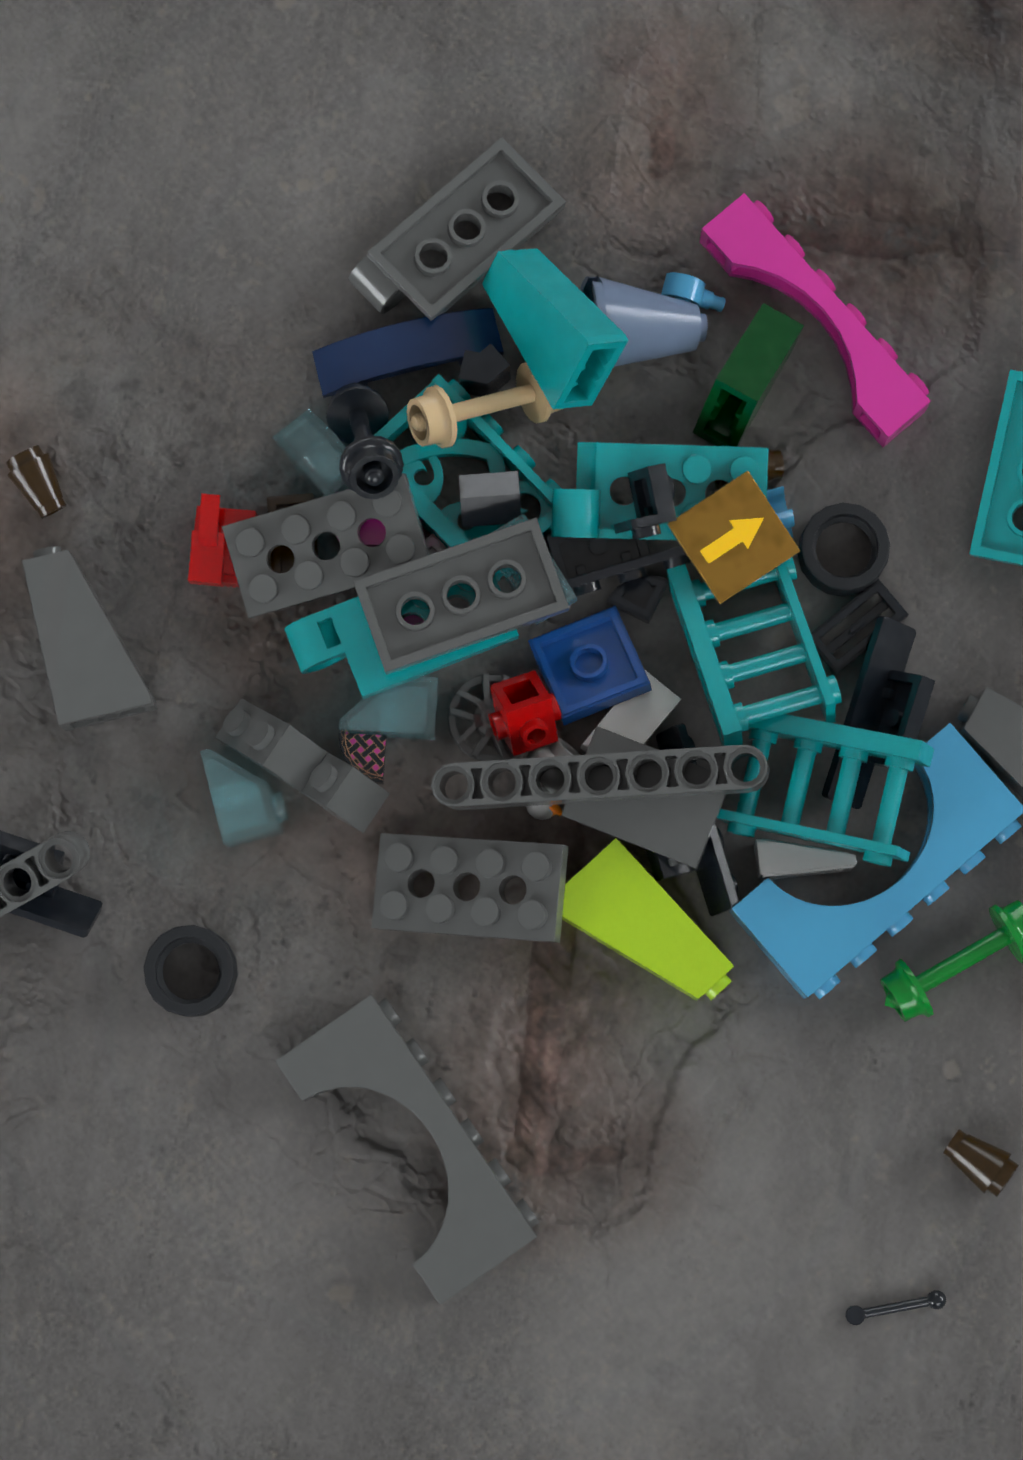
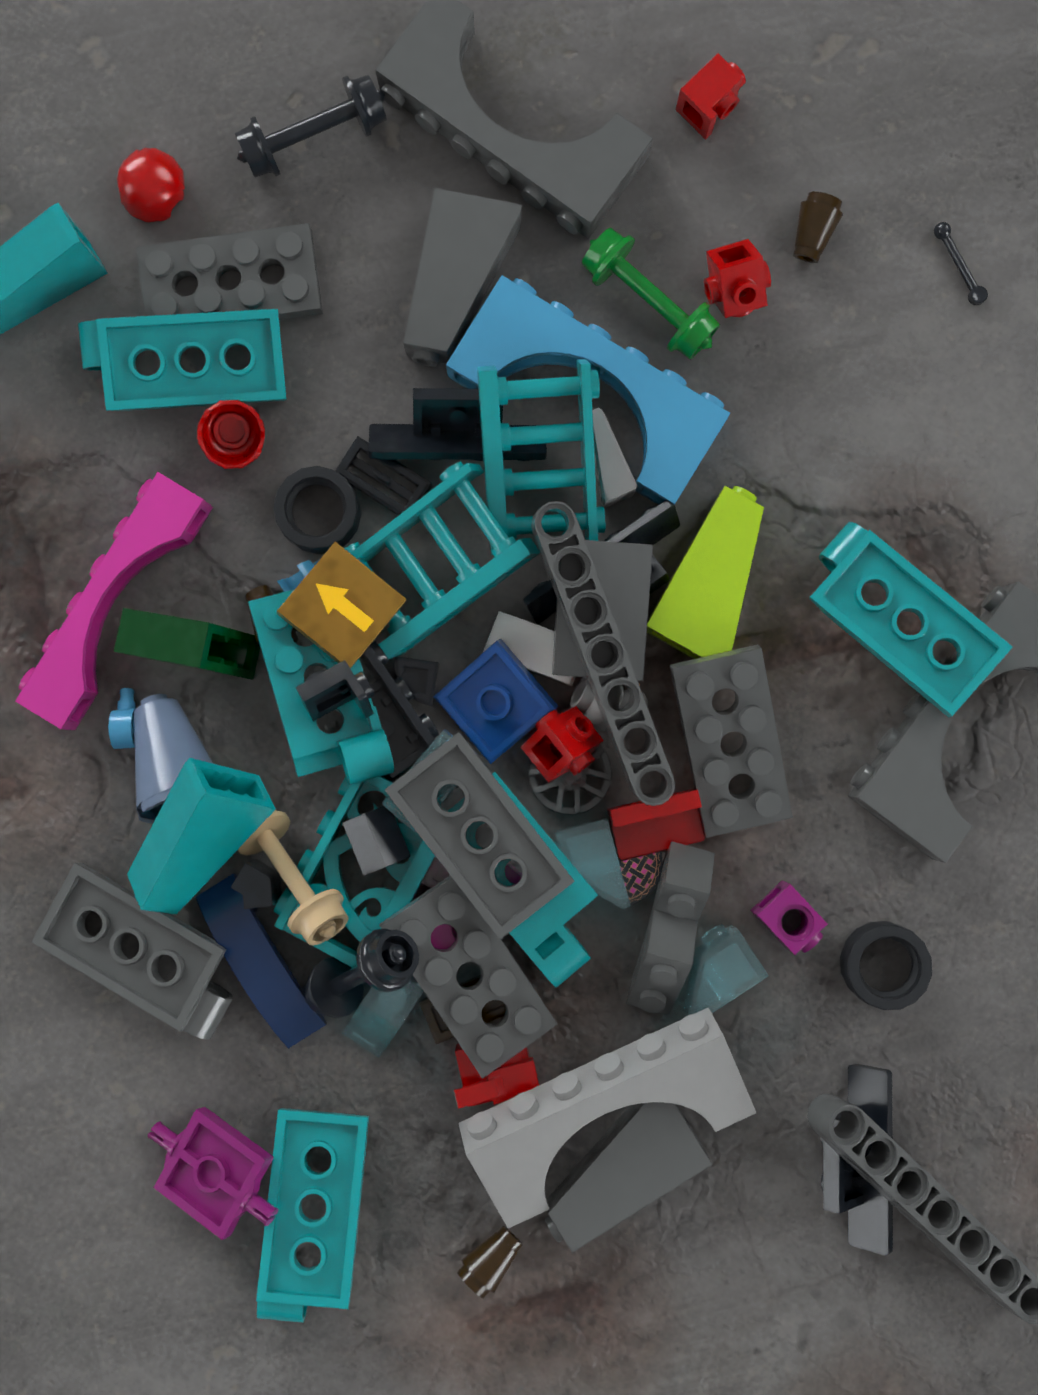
camera: 110 degrees left, 5 degrees up
(87, 275) = (284, 1283): none -> teal hinge
(169, 722) = (674, 1065): none -> light grey arch
(218, 242) = (213, 1172): none -> magenta plate
(292, 888) = (776, 904): none -> magenta brick
(408, 779) = (649, 829): none -> red panel
(609, 1086) = (864, 558): none -> teal hinge
(947, 486) = (231, 434): none -> red hair
(948, 1054) = (737, 279): none -> red brick

